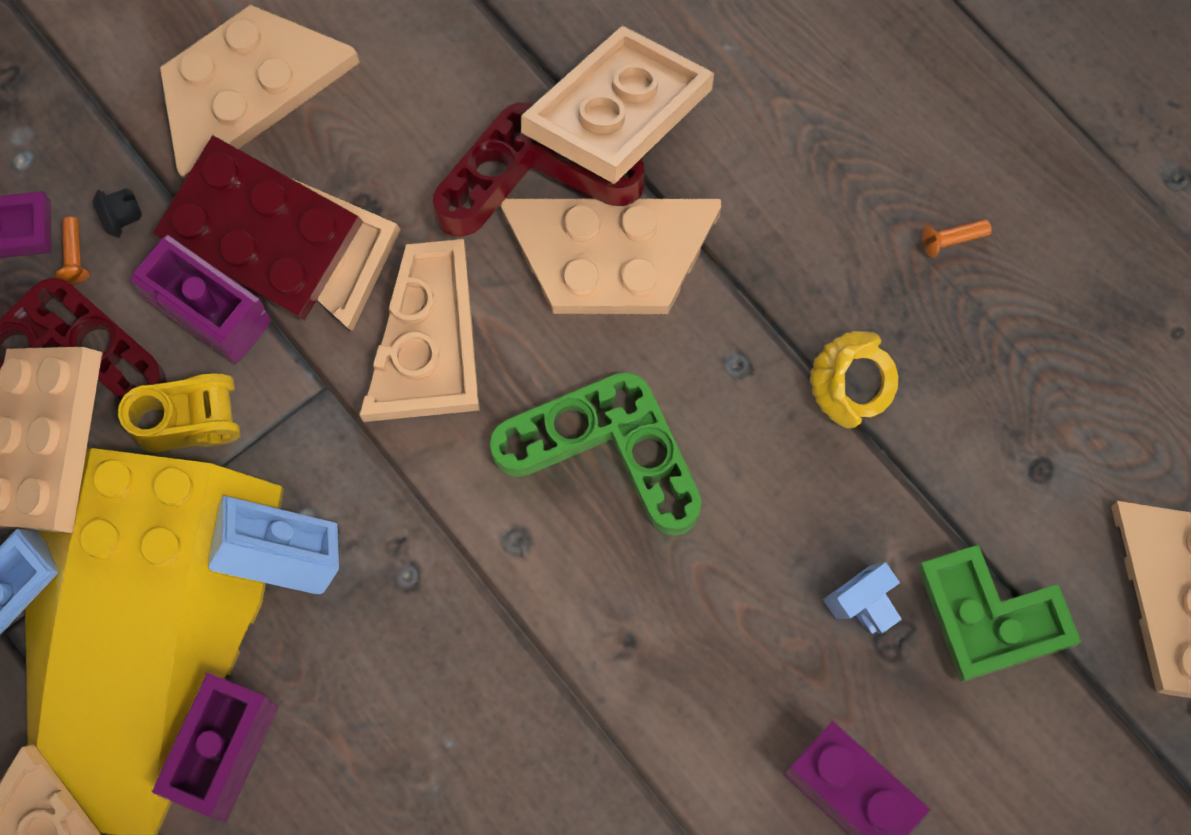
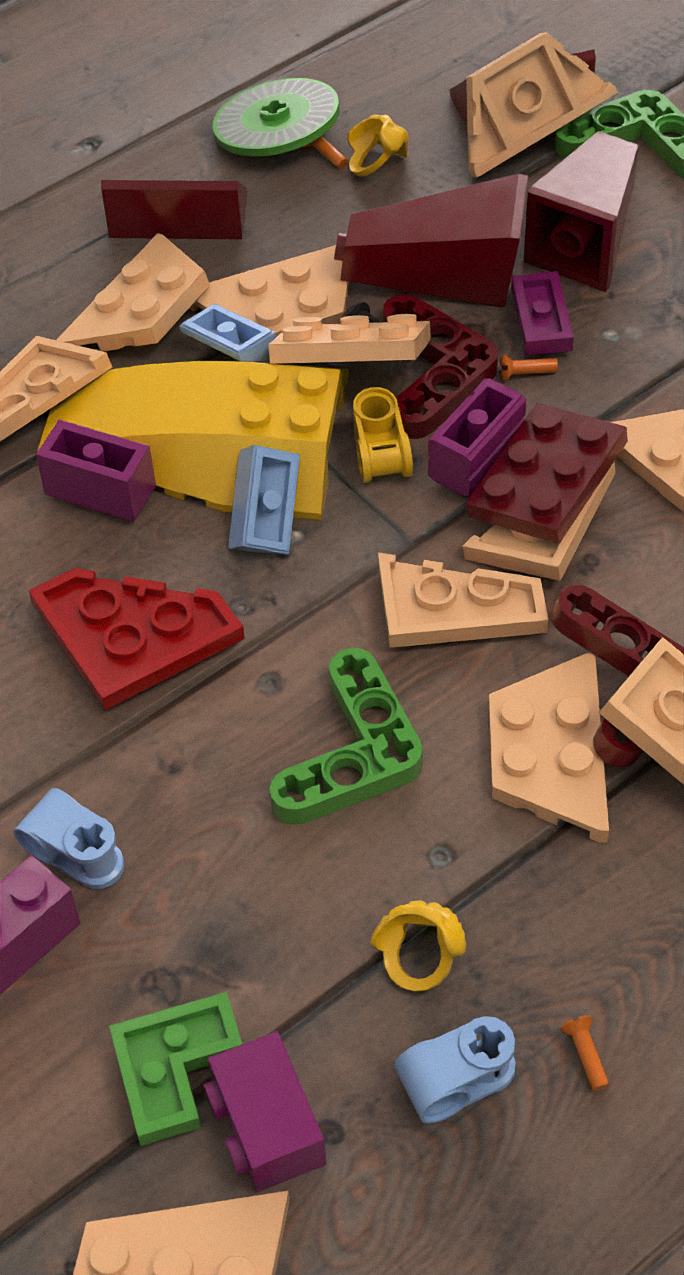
camera: 90 degrees right, 20 degrees down
(116, 210) = (564, 388): black piece -> none
(448, 697) = (132, 630): none -> red plate
(731, 748) = (72, 840): none -> light blue piece
(866, 599) = (193, 946): light blue tile -> none
(991, 354) = (454, 1070): none -> light blue piece
(1045, 521) = (266, 1112): none -> magenta brick

